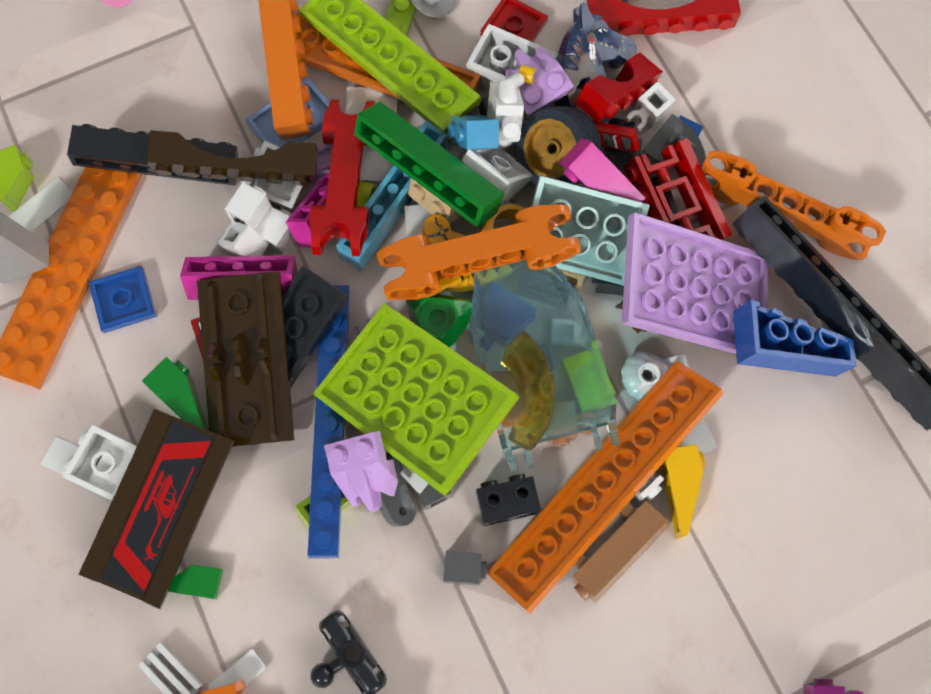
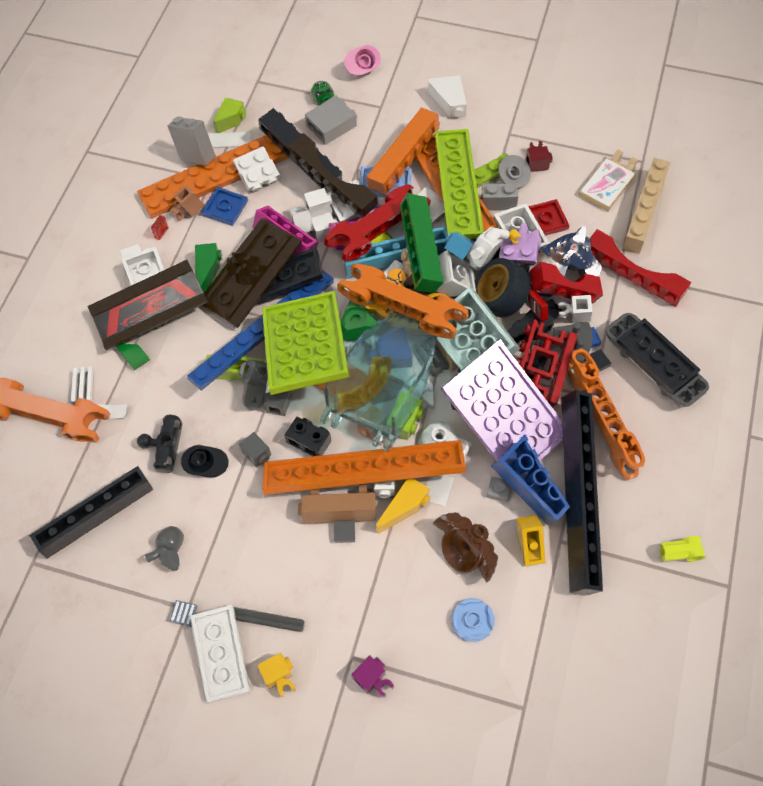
camera: 45 degrees right, 10 degrees down
(67, 393) = (159, 227): none -> clear red tile
(73, 332) = (187, 202): none -> nougat brick
(105, 58) = (322, 92): none -> green head
(120, 221) = (256, 169): none -> white plate
(150, 86) = (331, 119): none -> light grey brick
(362, 469) = (248, 357): lavender plate -> none
(418, 636) = (204, 461): none -> black piece
(445, 35) = (499, 196): none -> light grey brick
(593, 169) = (503, 309): slope -> none
(647, 571) = (344, 531): none -> dark grey tile
(718, 144) = (600, 359): none -> black tile
(753, 380) = (498, 489): none -> light grey plate
(779, 101) = (658, 359): none -> black piece
(796, 473) = (466, 545): none -> reddish brown piece
(839, 406) = (531, 540): none -> yellow slope
(861, 545) = (472, 620): none -> light blue tile

